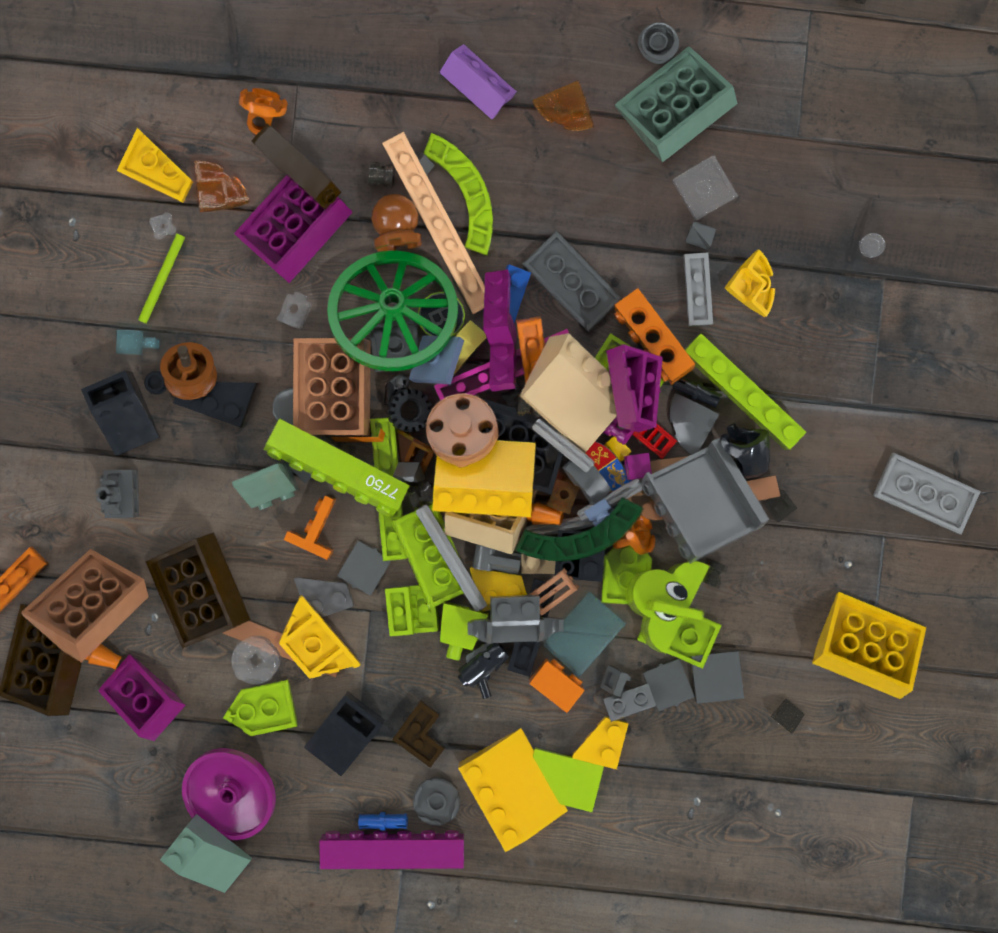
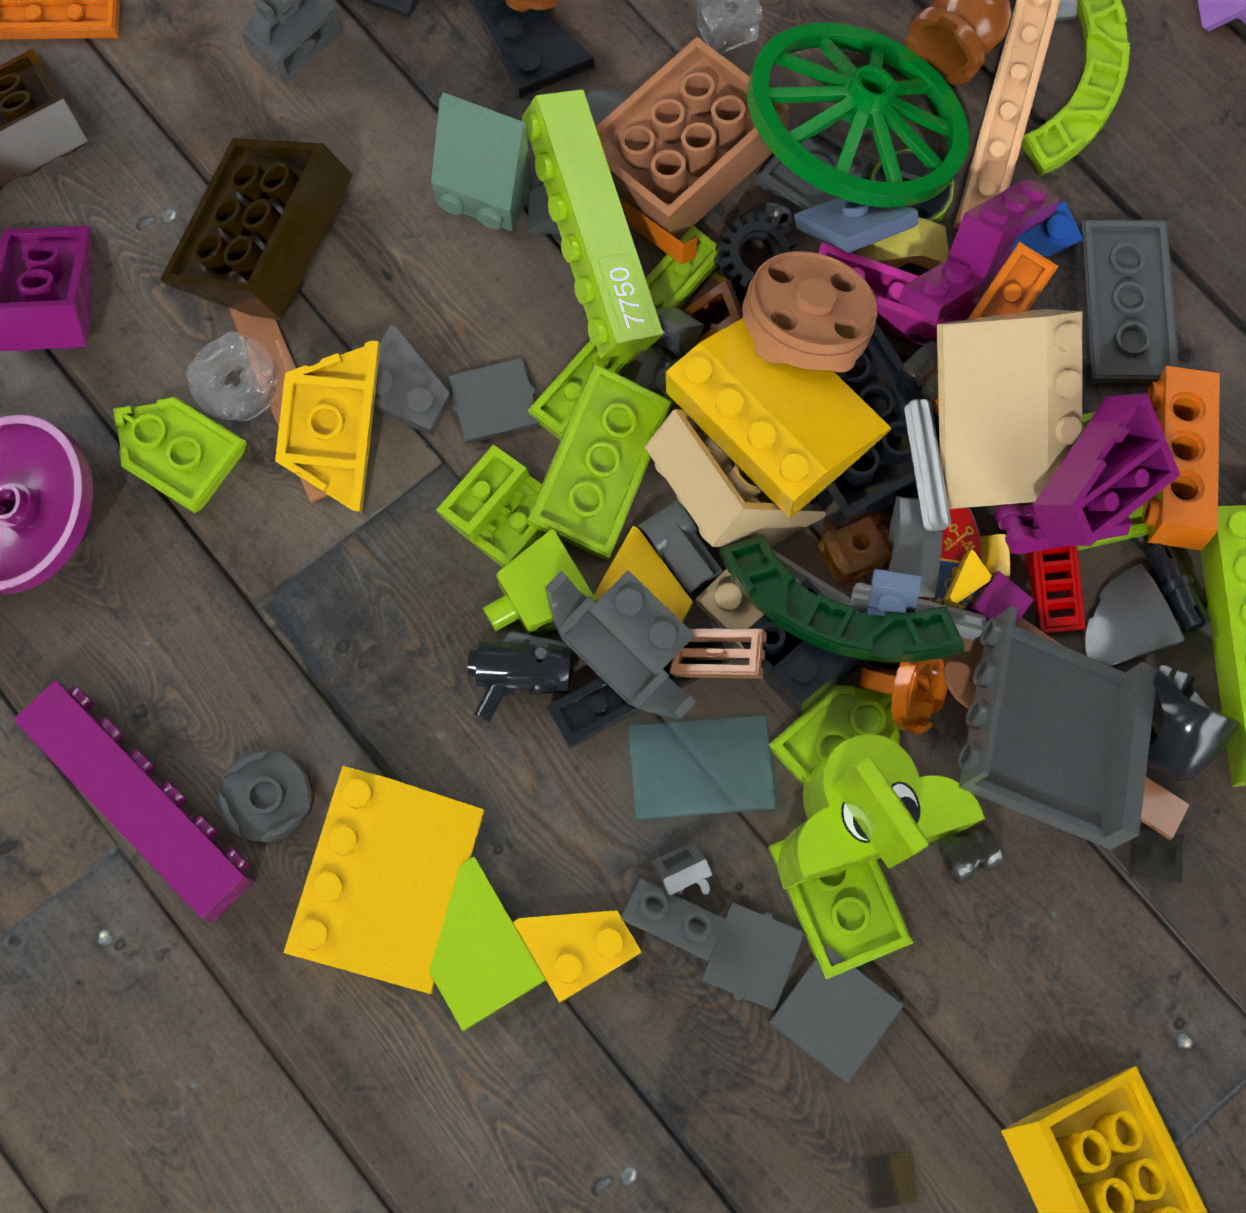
camera: 45 degrees right, 15 degrees down
(86, 604) = (104, 99): nougat slope -> none
(104, 657) = (54, 190): orange cone -> none
(314, 530) = (485, 288): orange bracket -> none
(344, 733) = (243, 576): black slope -> none
(383, 821) = (166, 748): blue pin -> none
(414, 735) = (328, 673): dark brown plate -> none
(451, 558) = (622, 485): light grey axle -> none
(545, 515) = (803, 547): orange cone -> none
(556, 684) = (595, 795): orange brick -> none
(618, 472) = (968, 578): none -> yellow slope

